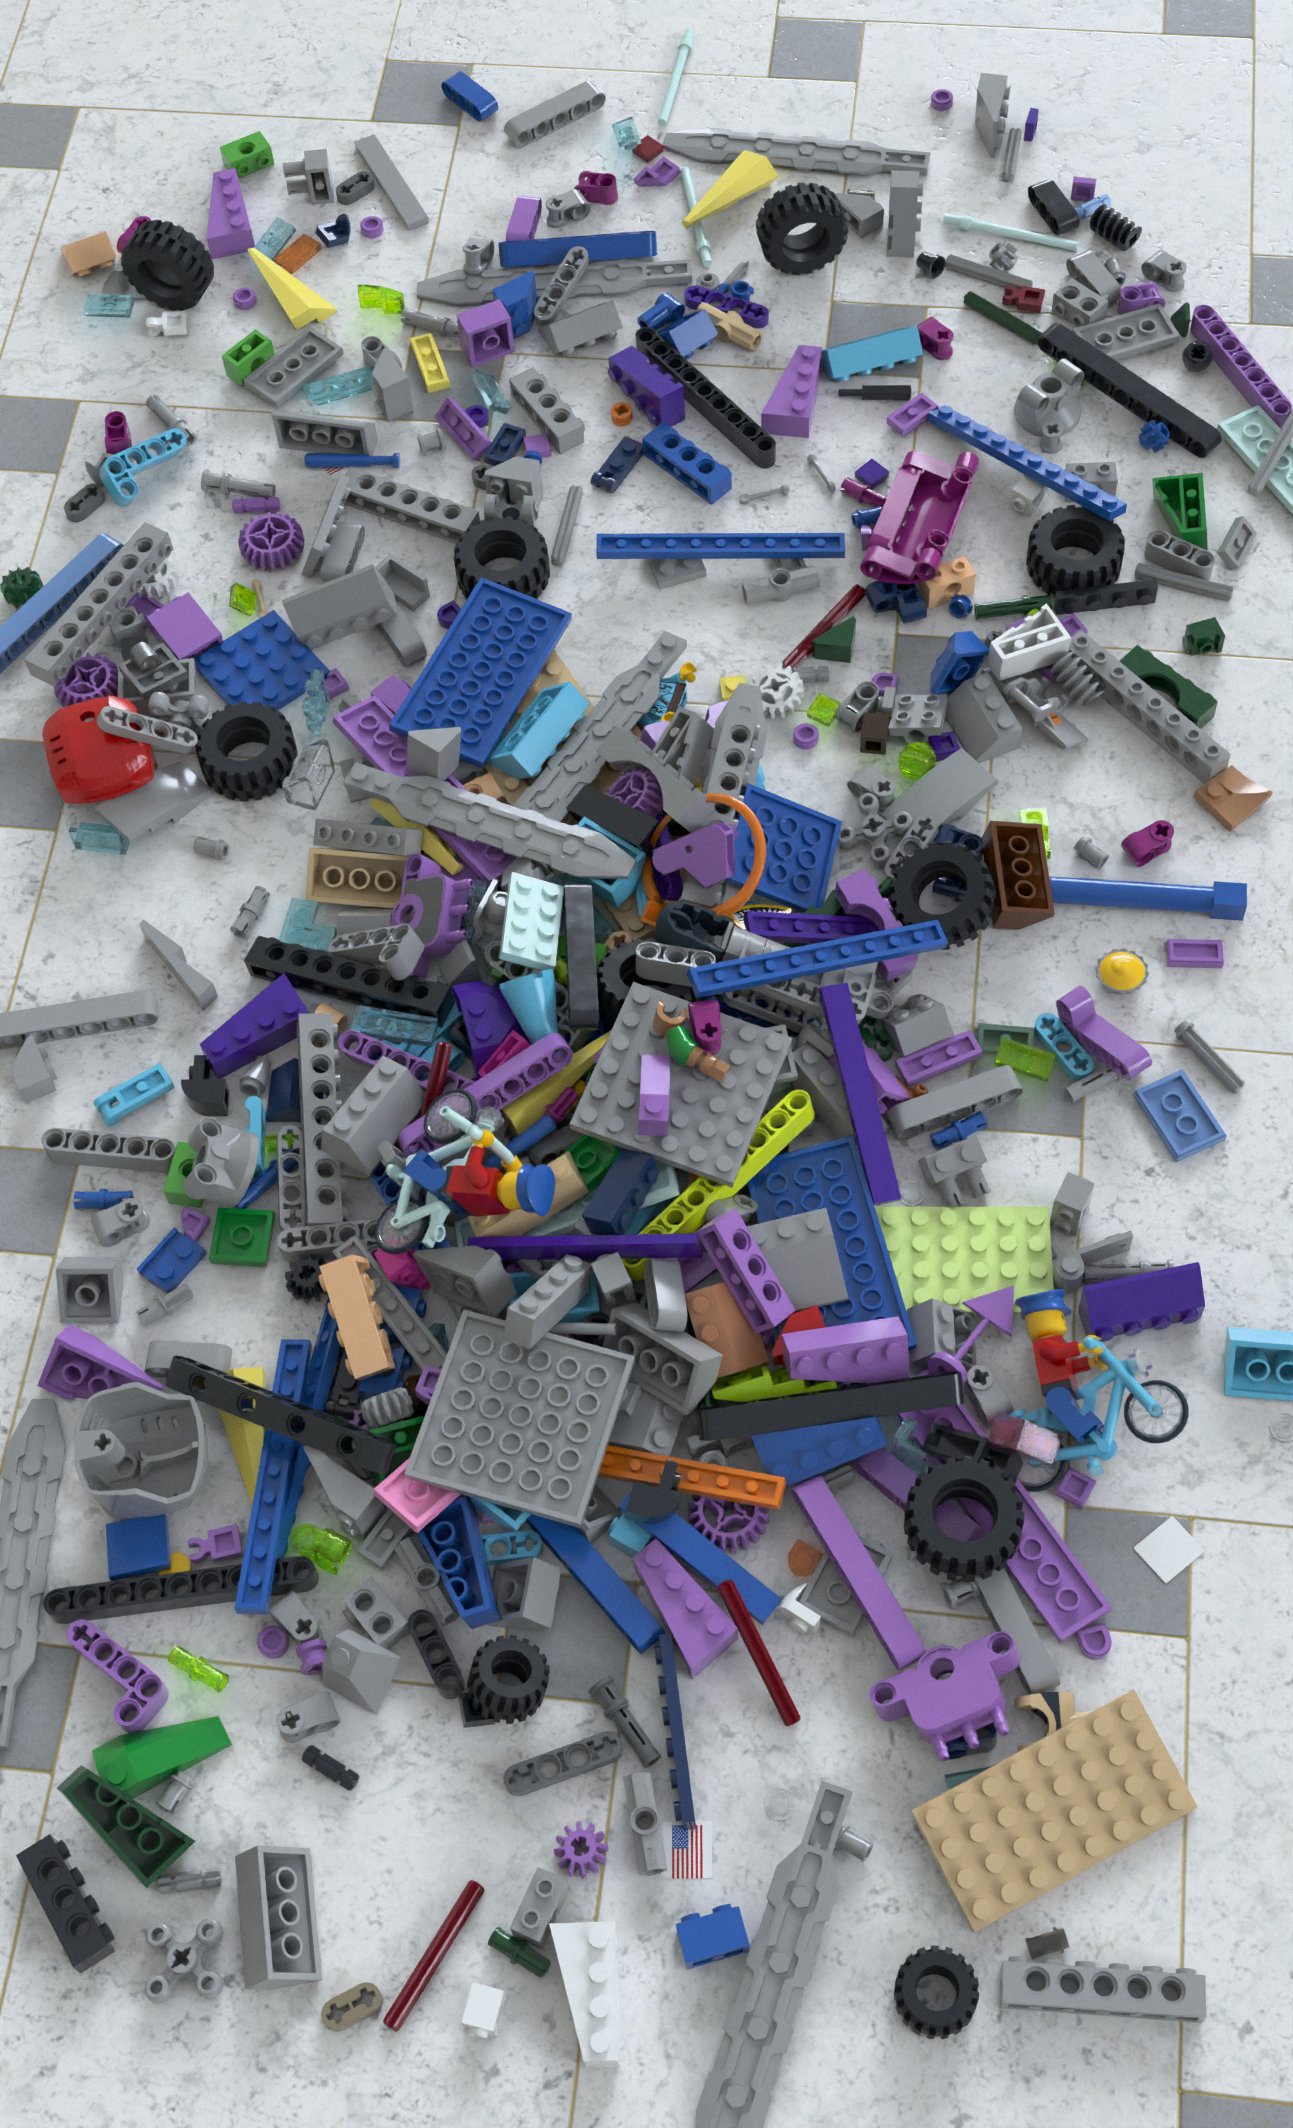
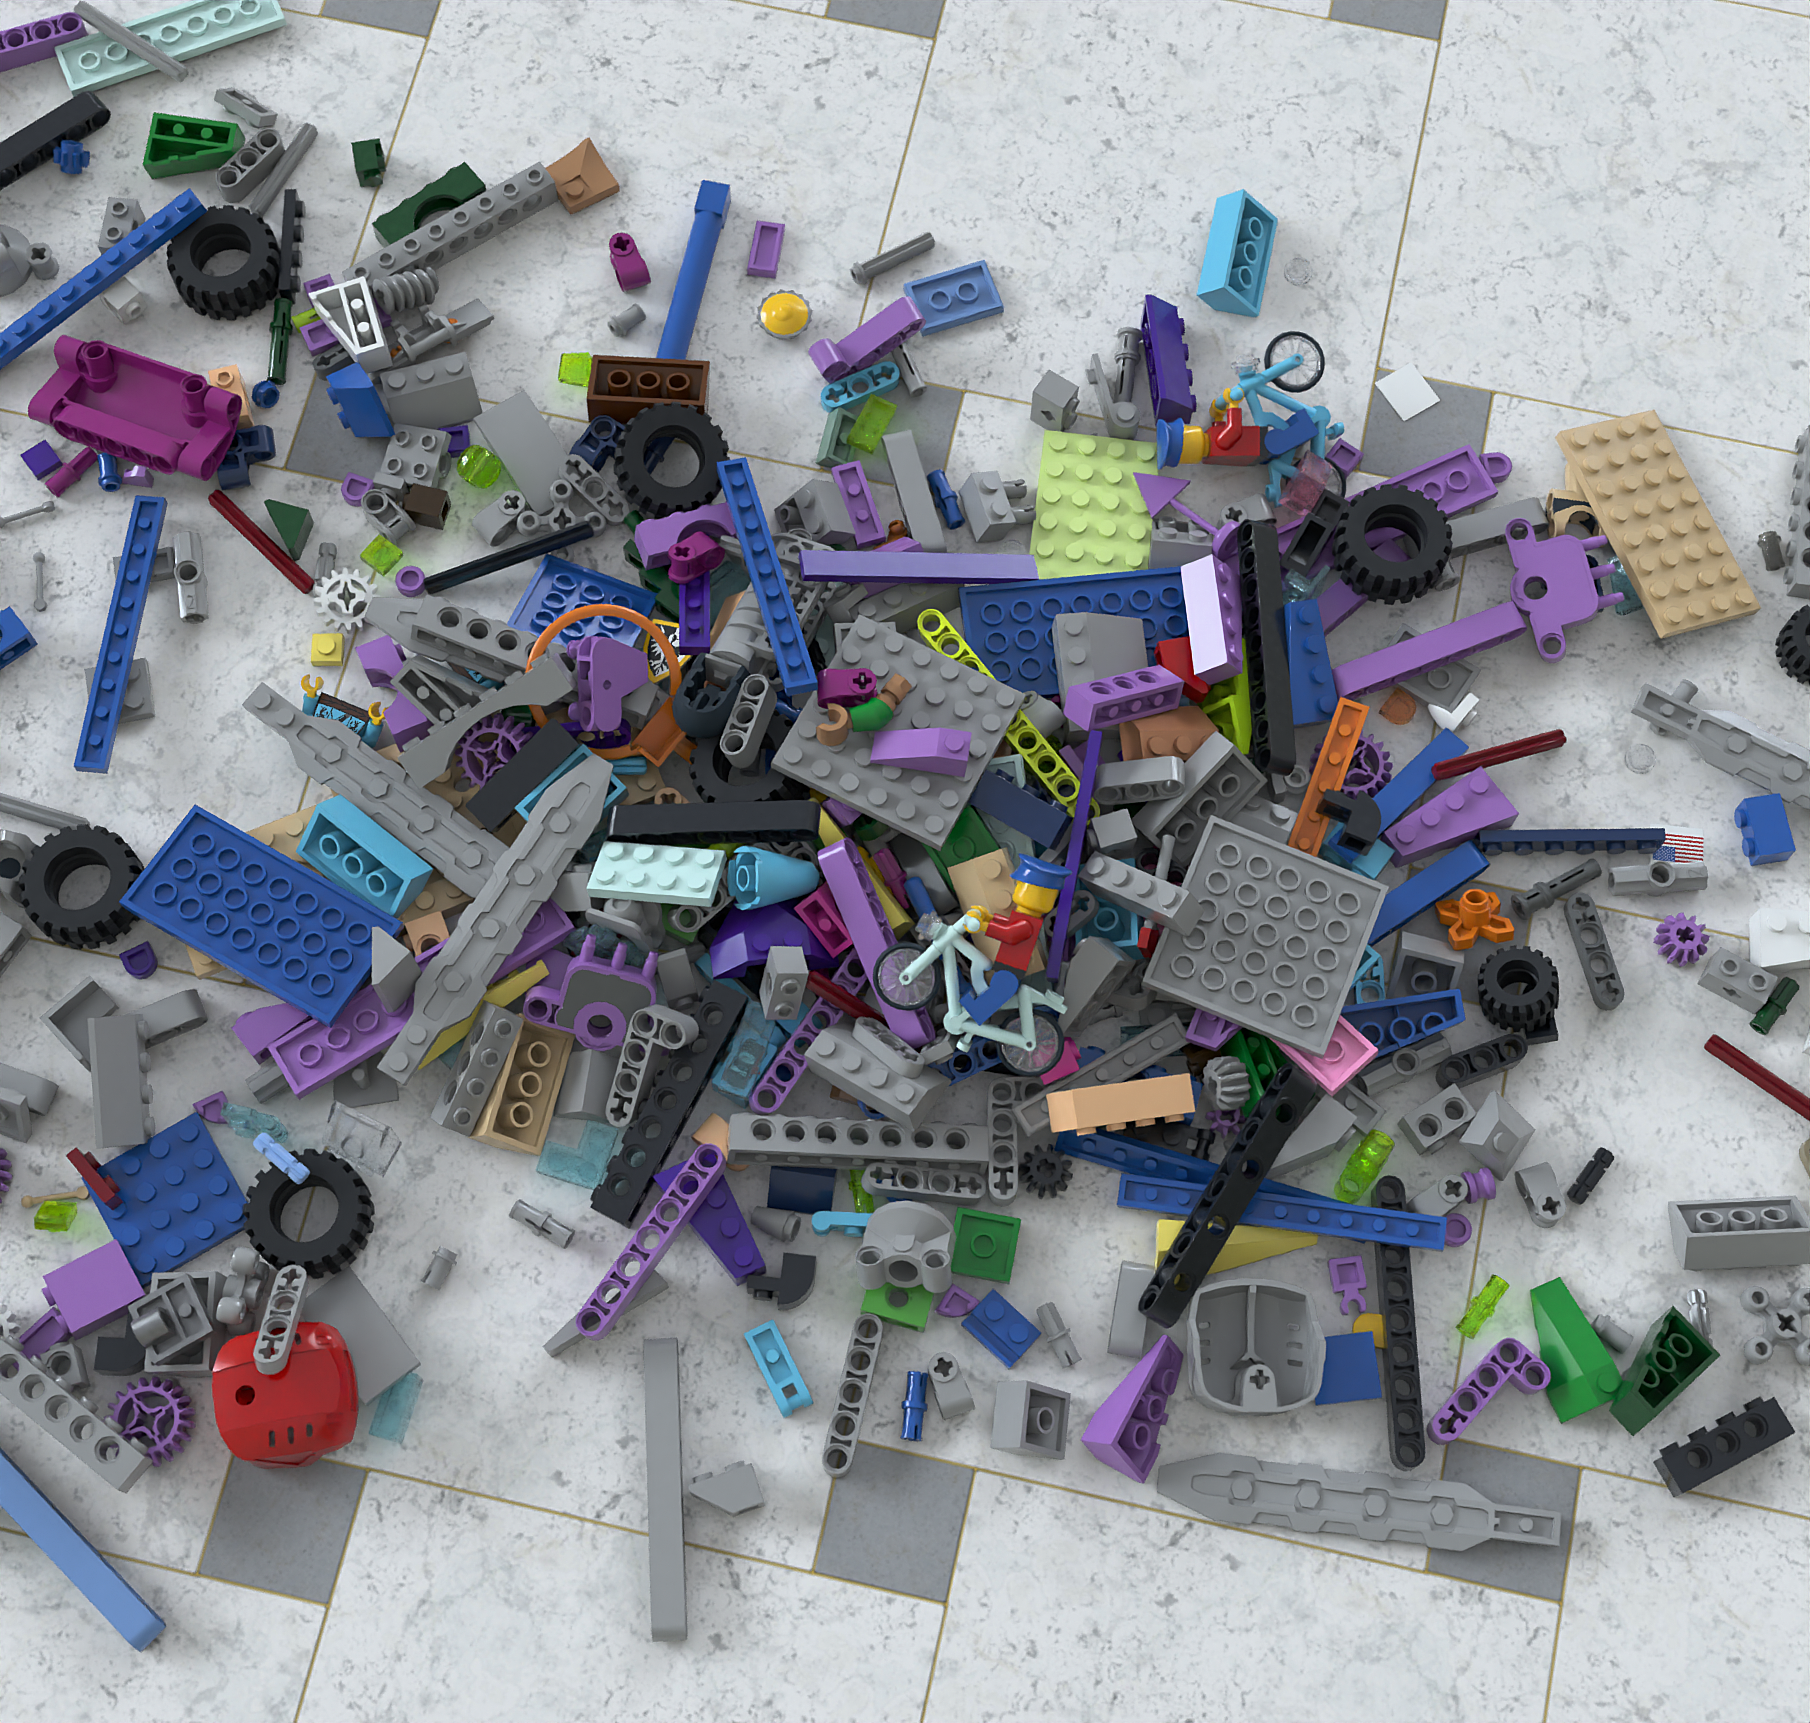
camera: 90 degrees left, 10 degrees up
(223, 974) = (650, 1258): none -> medium lavender beam
(265, 611) = (105, 1187): none -> dark red plate
(278, 714) = (281, 1158): none -> light blue axle
(382, 1117) = (888, 1047): none -> light grey beam
(445, 1026) = (783, 983): none -> light grey brick
(580, 1637) = (1474, 917): none -> orange plant
(833, 795) = (508, 557): none -> black axle
(847, 920) = (694, 557): none -> magenta piece

